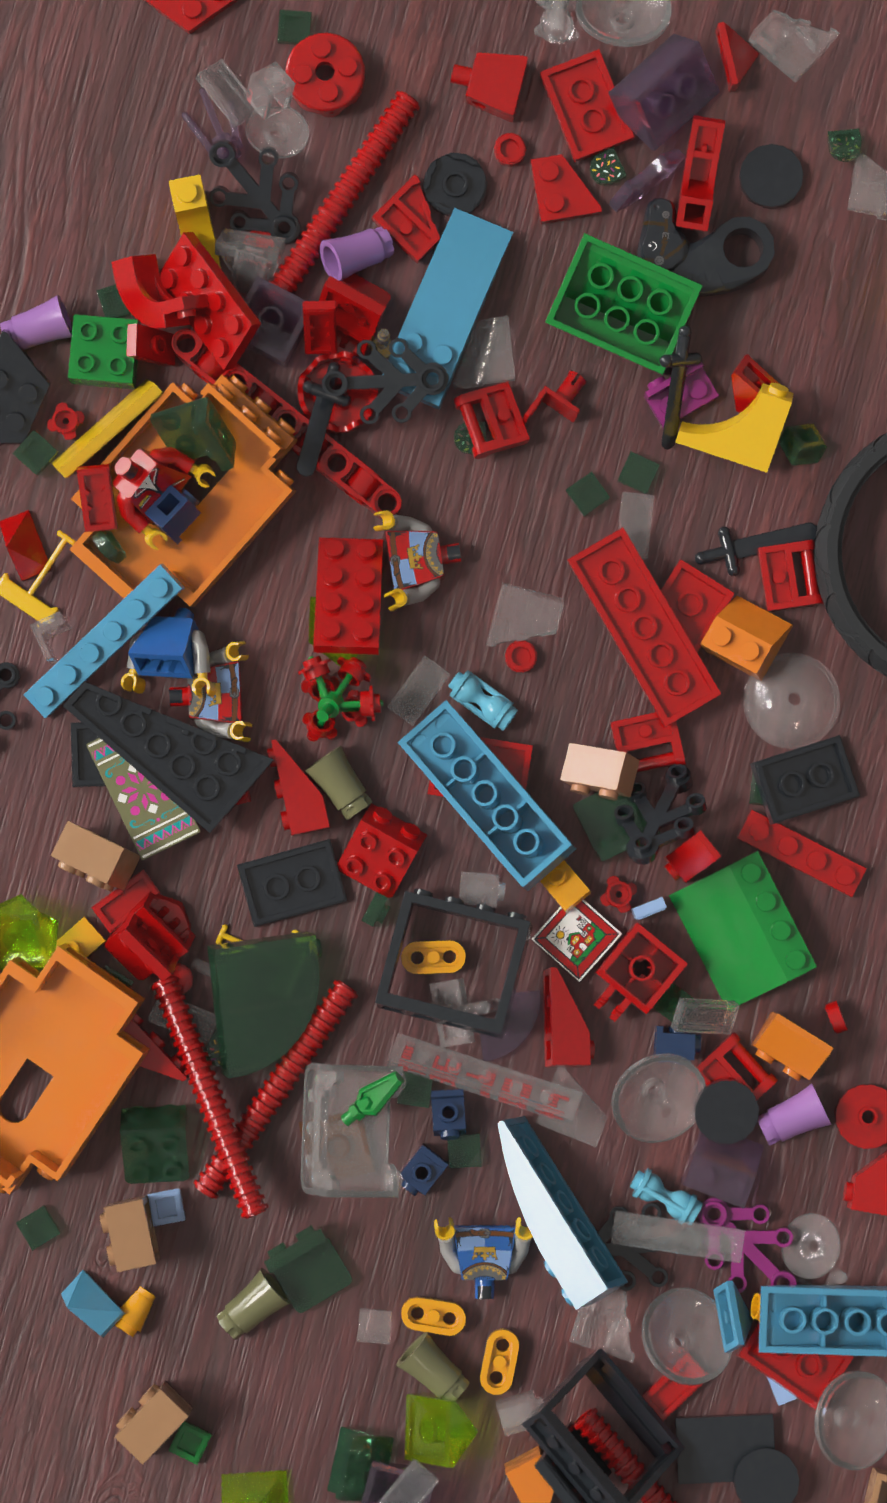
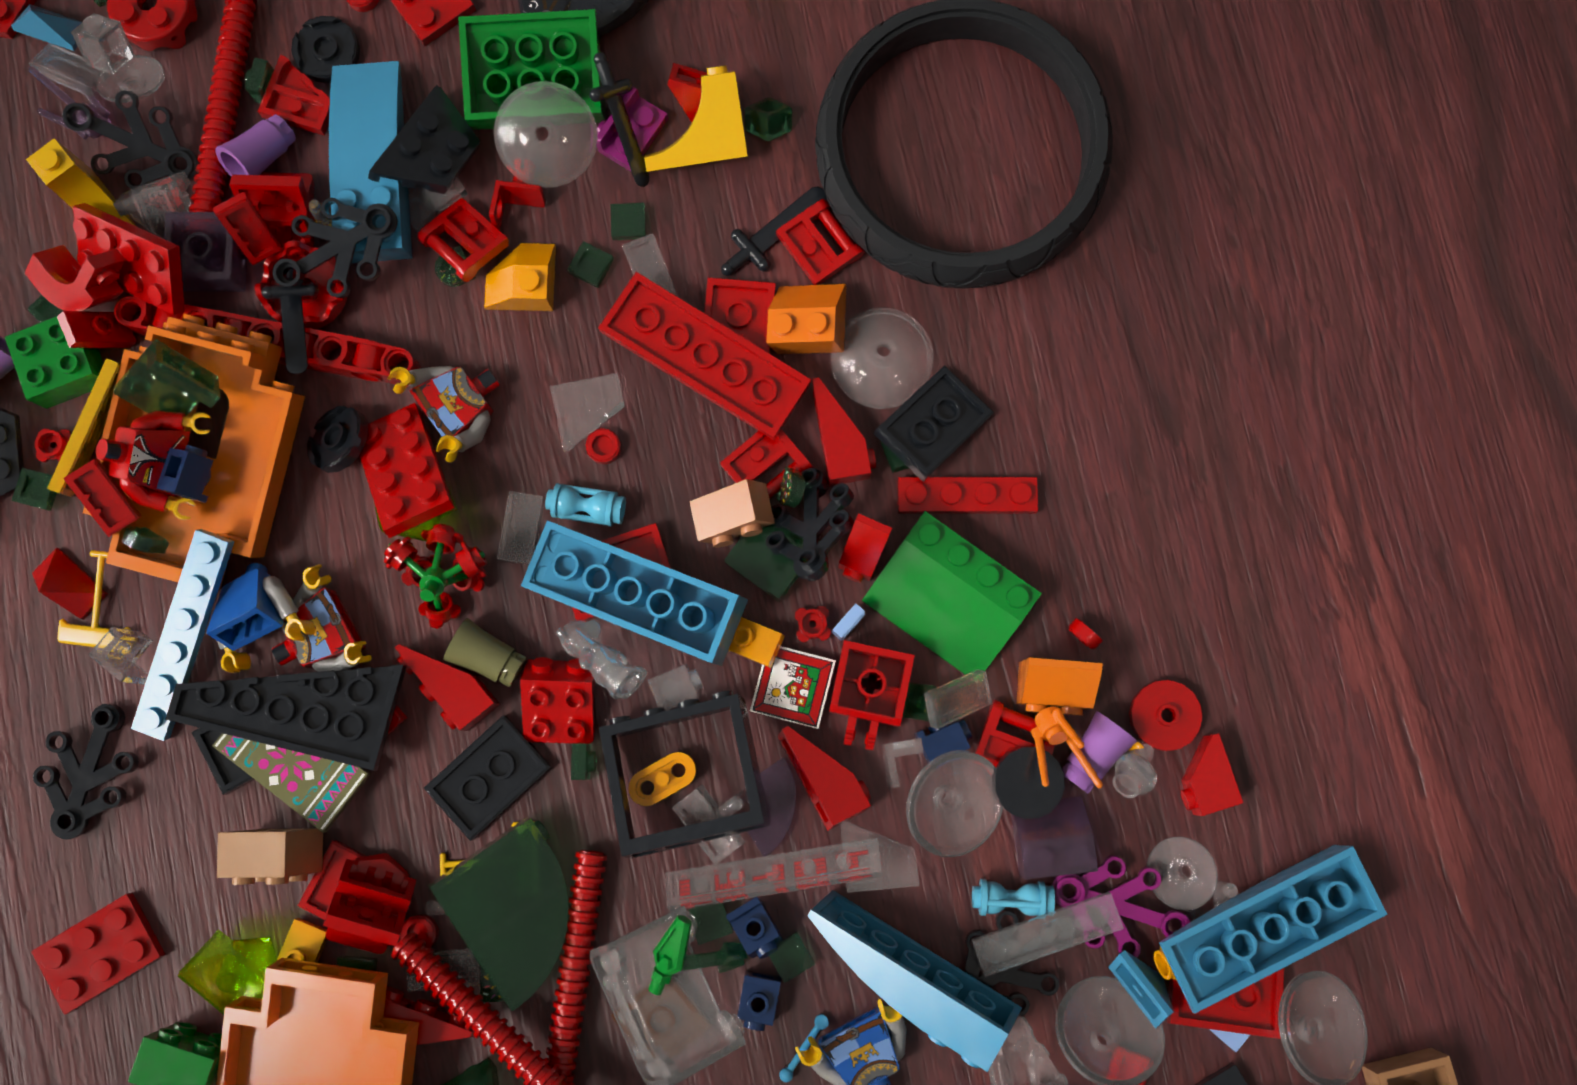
camera: 20 degrees left, 5 degrees down
(229, 44) = (47, 26): none -> dark azure slope
(305, 540) = (338, 439): none -> black tile
(386, 188) = (258, 78): none -> clear green plate
(413, 1126) = (726, 959): none -> clear green bar
(414, 1239) = (821, 1022): none -> dark azure hinge
(435, 841) = (607, 664): none -> clear piece
(504, 329) = (429, 147): none -> black wing
(524, 477) = (523, 279): none -> light orange slope
(609, 347) = (570, 134): none -> clear dish
(634, 1031) = (898, 749): none -> clear panel
(658, 774) = (791, 488): none -> clear green tile
(720, 757) = (842, 442): none -> red slope
(769, 1080) = (1056, 730): none -> orange plant
(816, 1147) = (1134, 772): none -> clear animal

